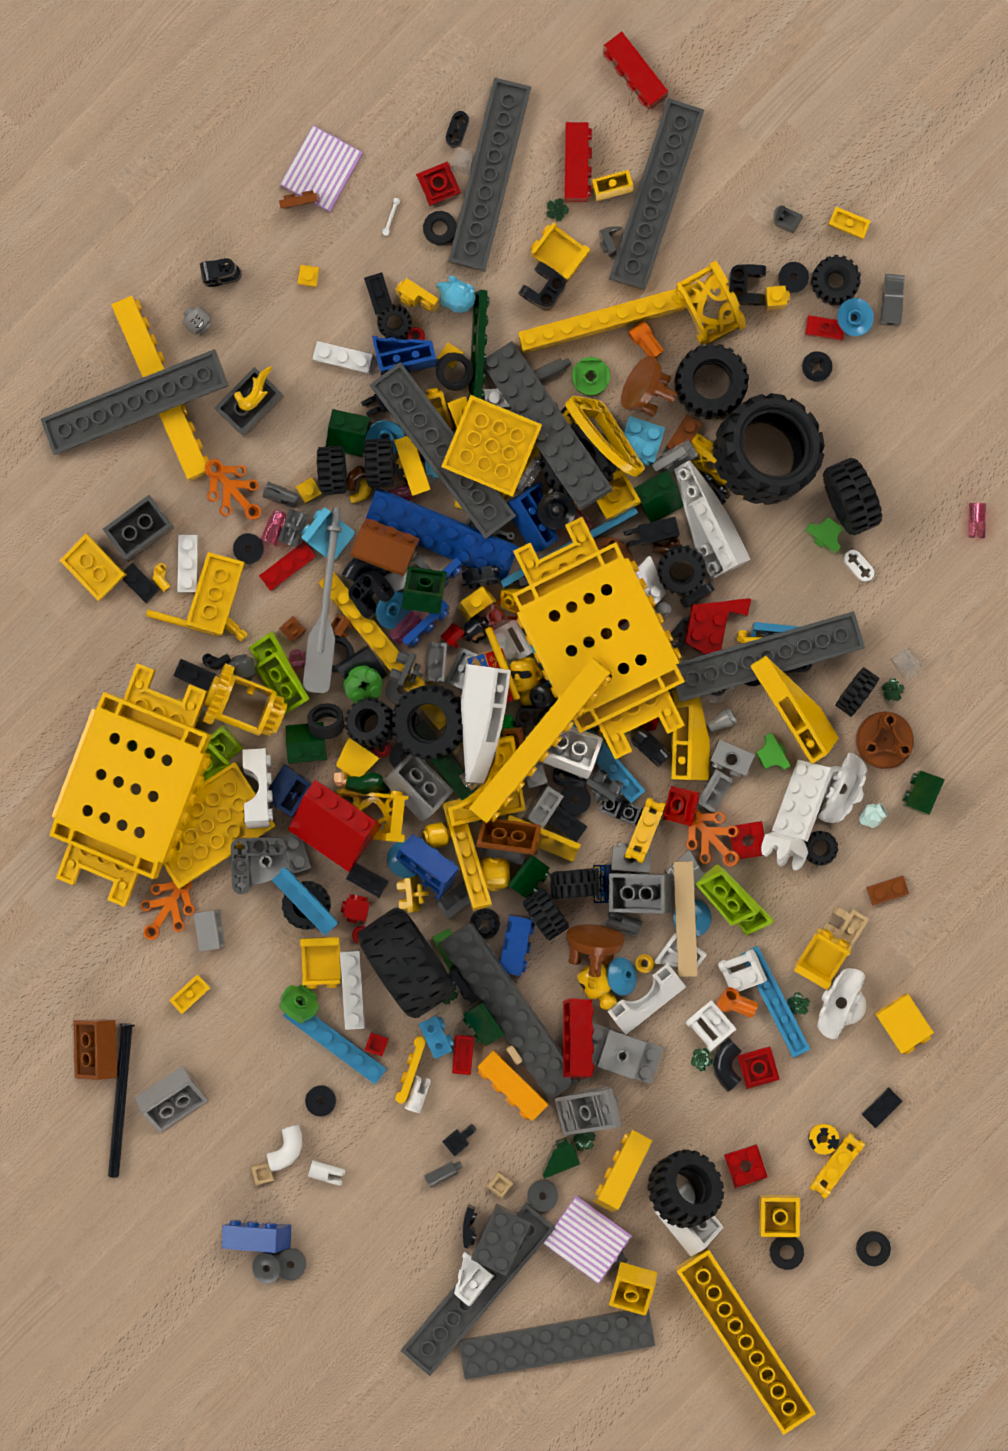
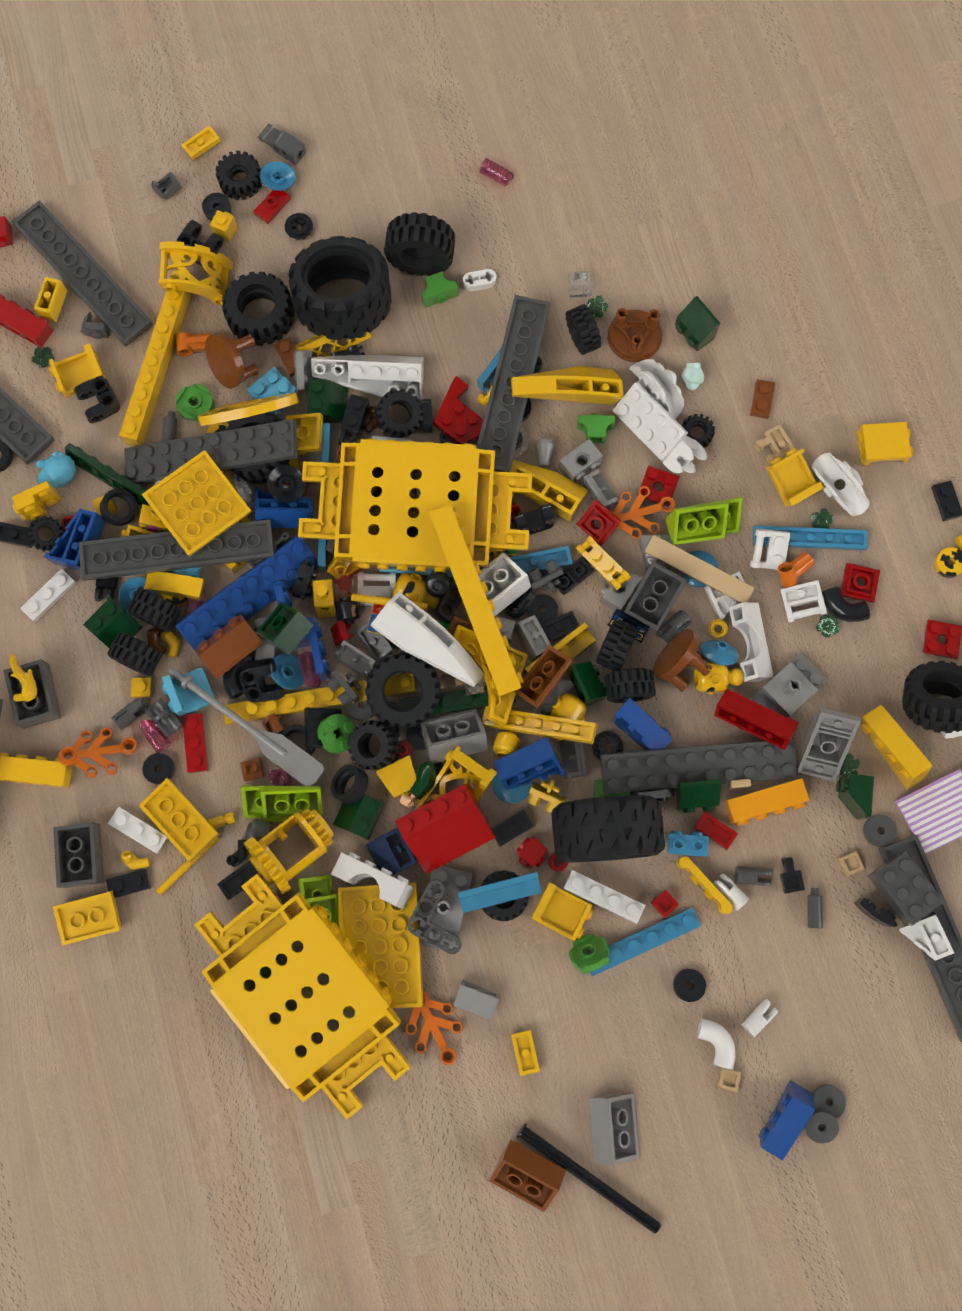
camera: 60 degrees left, 10 degrees down
(440, 1103) = (749, 875): none -> dark grey hinge

